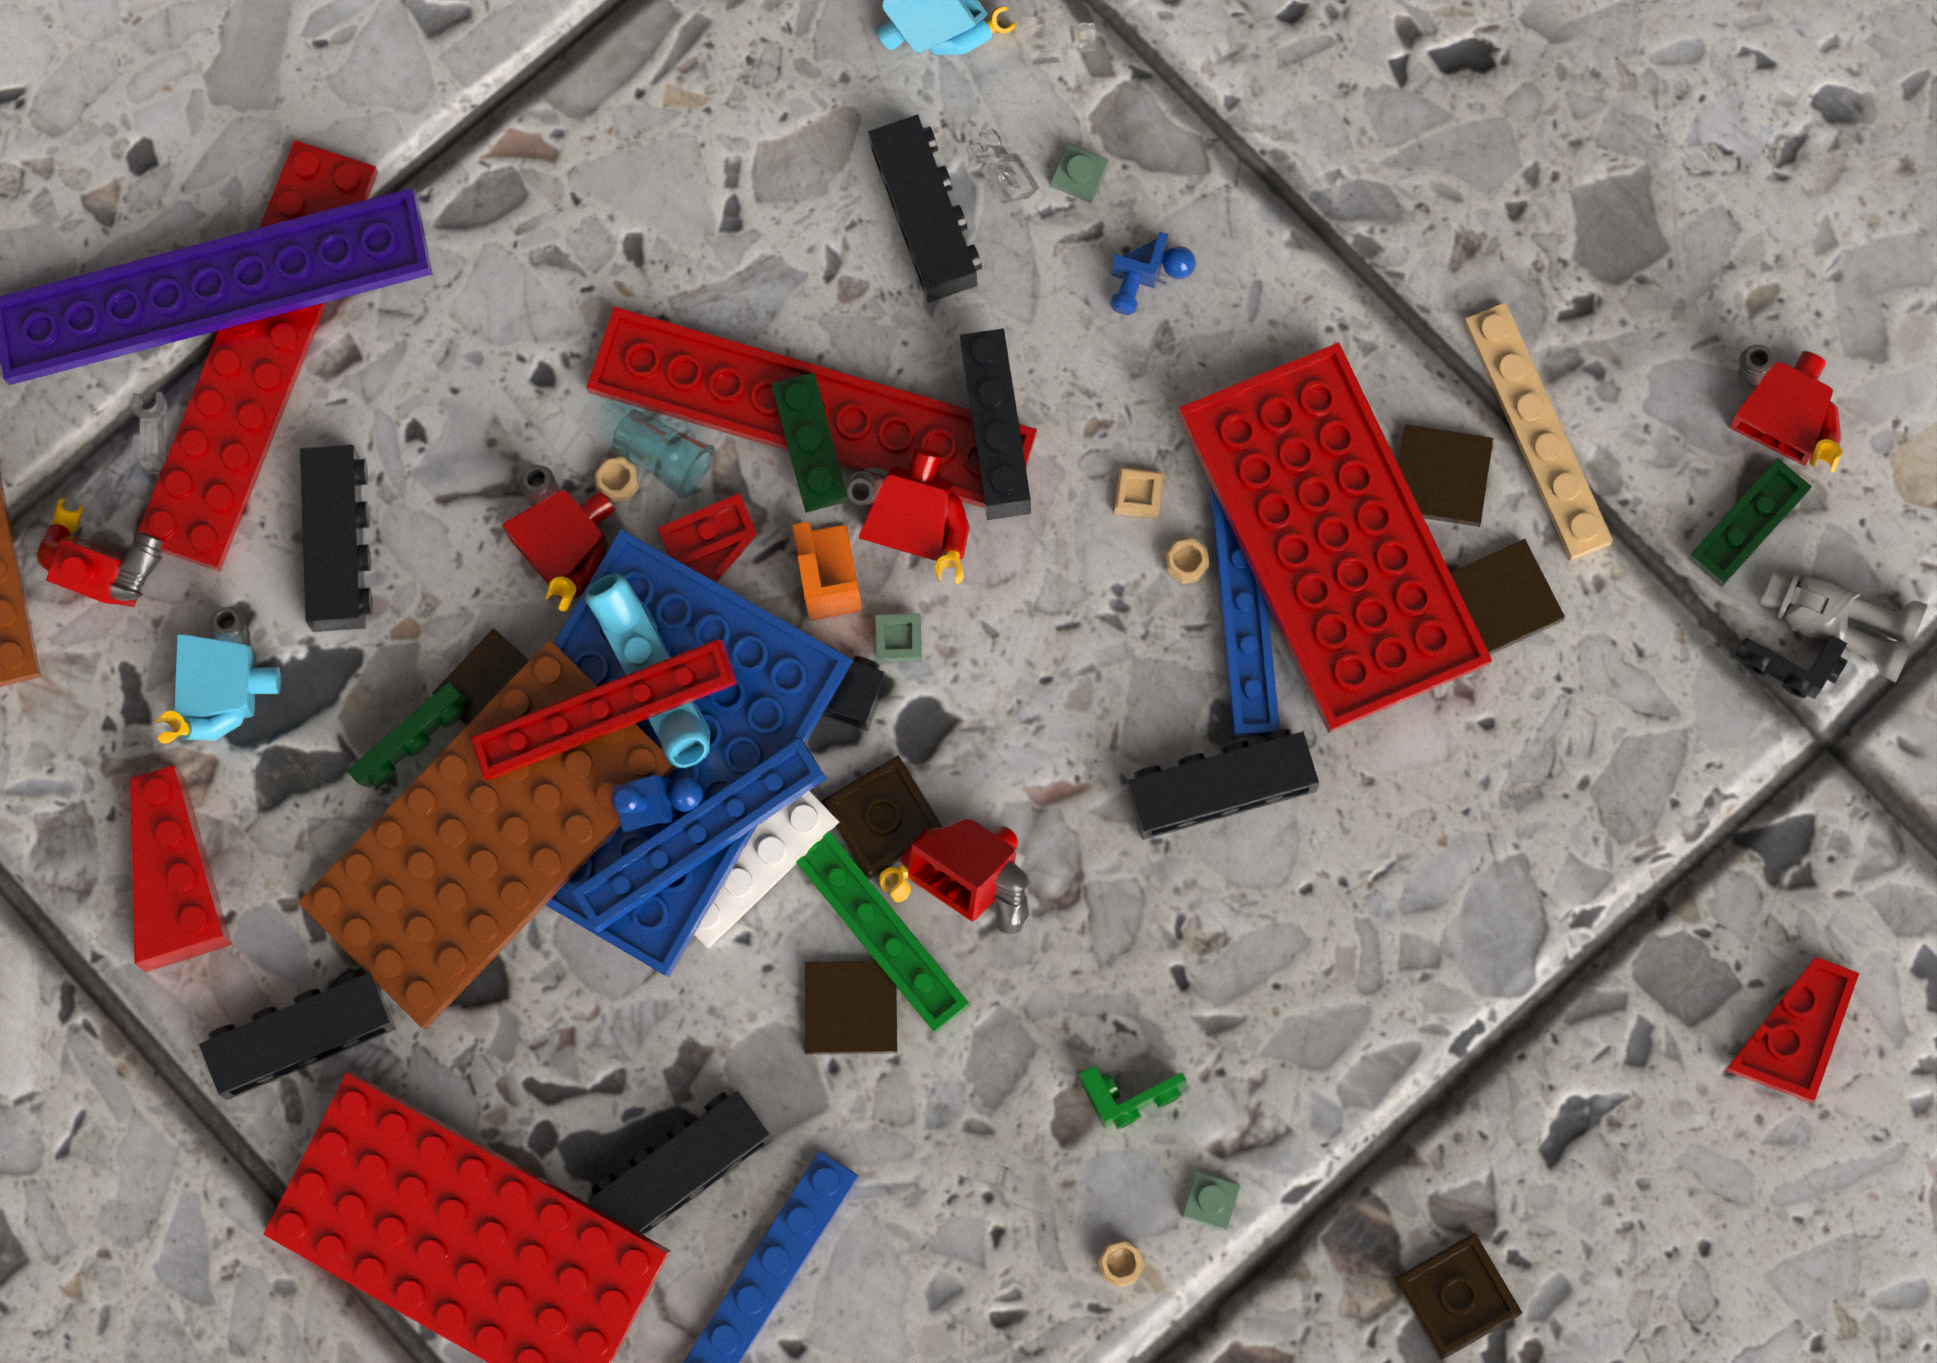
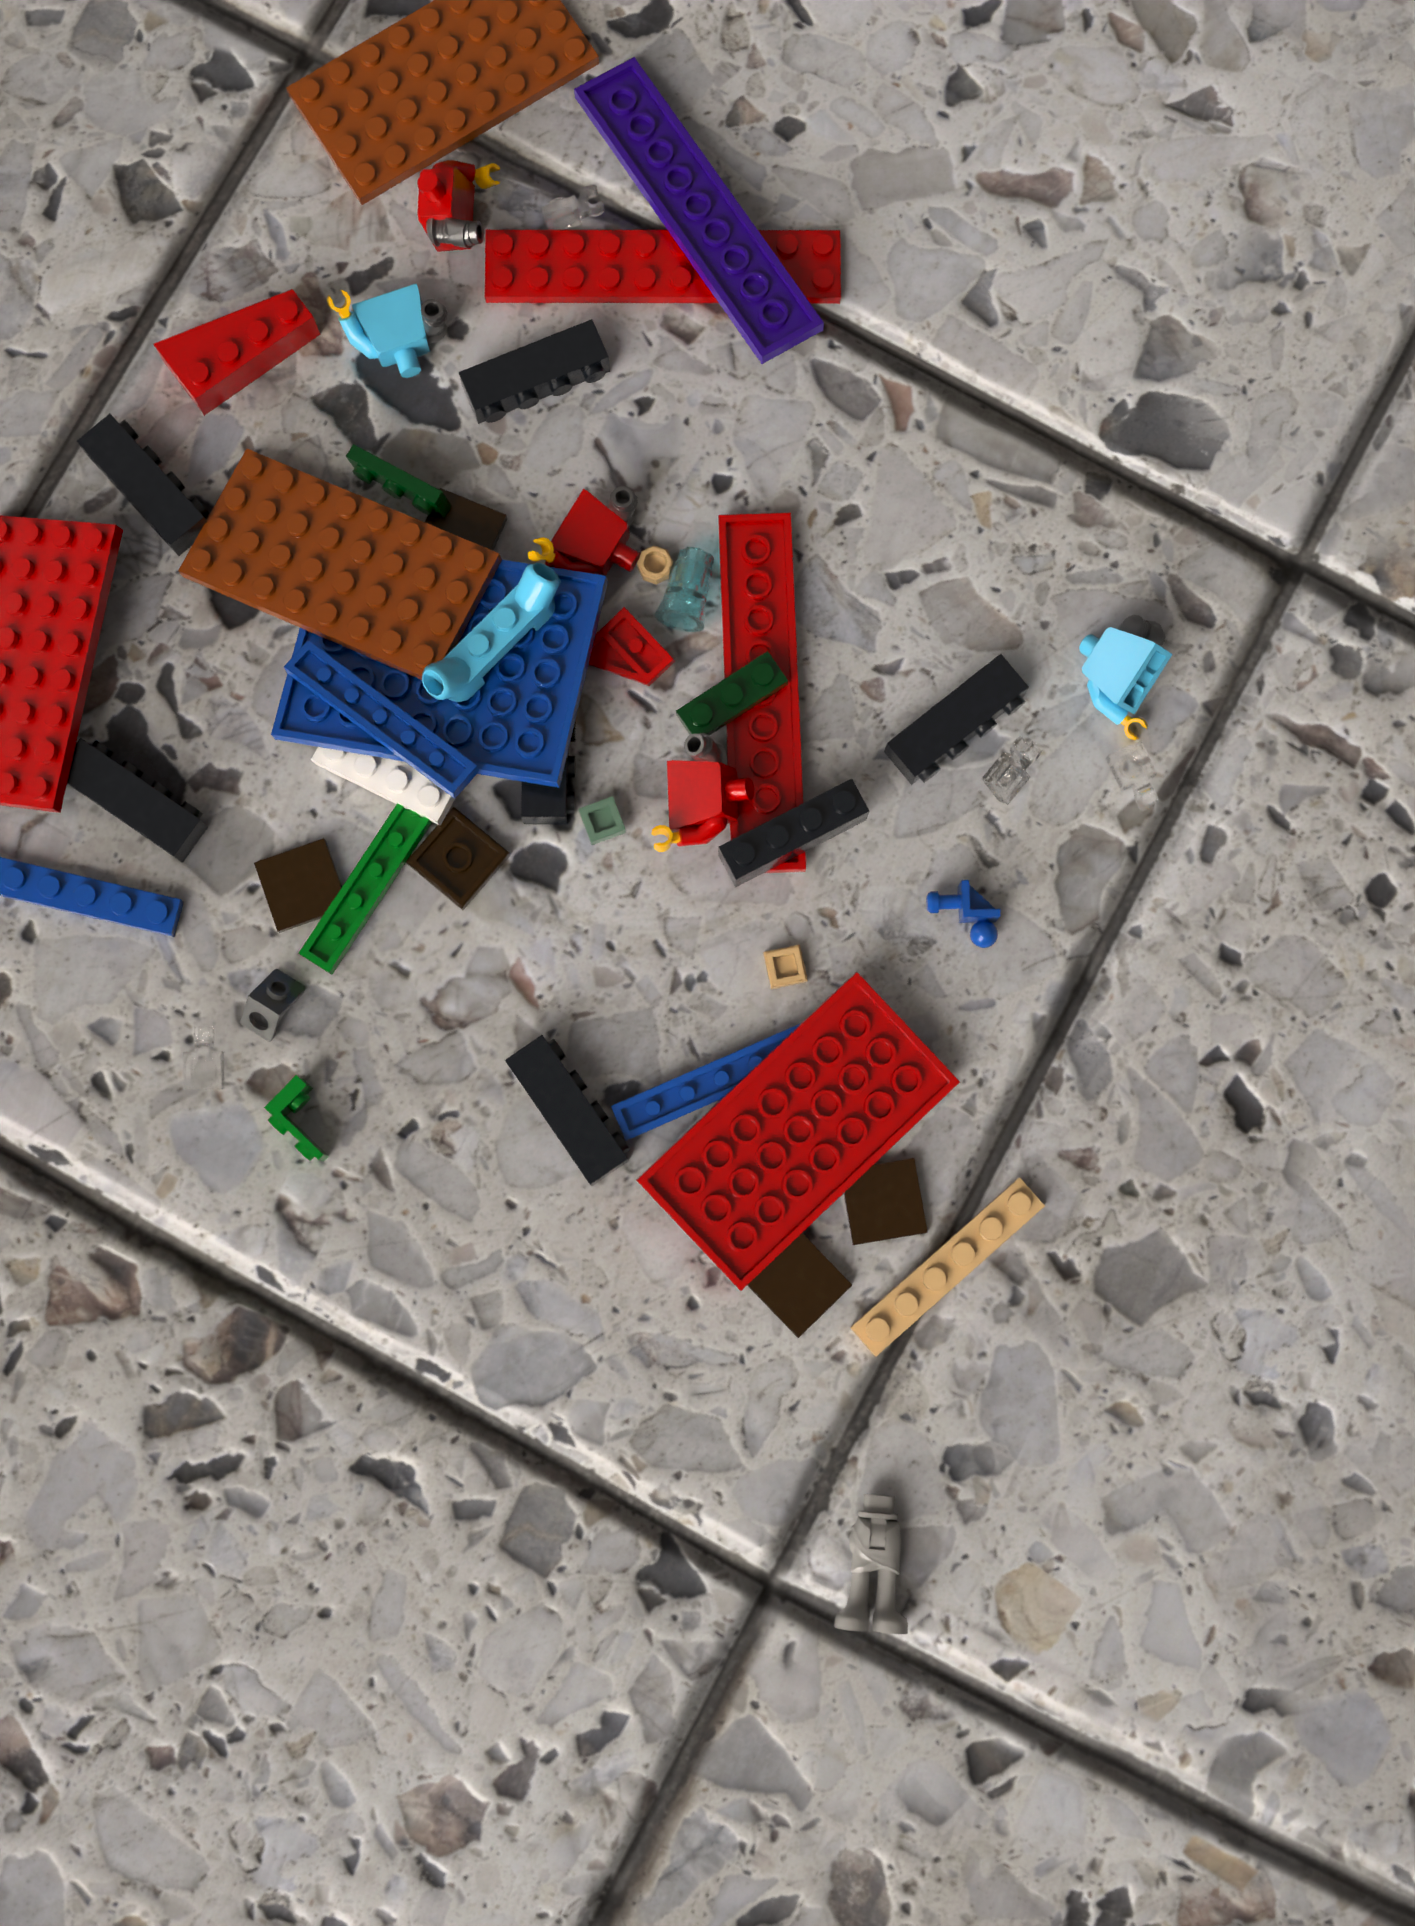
camera: 65 degrees right, 5 degrees up
(603, 709) = (450, 610): red tile -> none
(655, 801) = (393, 674): blue piece -> none
(827, 571) = (635, 746): orange panel -> none
(966, 871) = (429, 934): red torso -> none
(979, 1078) = (271, 1000): none -> dark grey bracket
(1080, 173) = (1032, 832): sand green plate -> none
(1121, 1263) = (165, 1158): tan tile -> none
(1187, 560) = (741, 1022): tan tile -> none
(1211, 1201) = (237, 1211): sand green plate -> none
(1458, 1296) = (223, 1429): dark brown tile -> none
(1749, 522) = (929, 1464): dark green plate -> none
(1788, 407) = (1036, 1468): red torso -> none
(1794, 678) = (828, 1565): black bracket -> none
(1799, 1033) = (519, 1637): red wing -> none

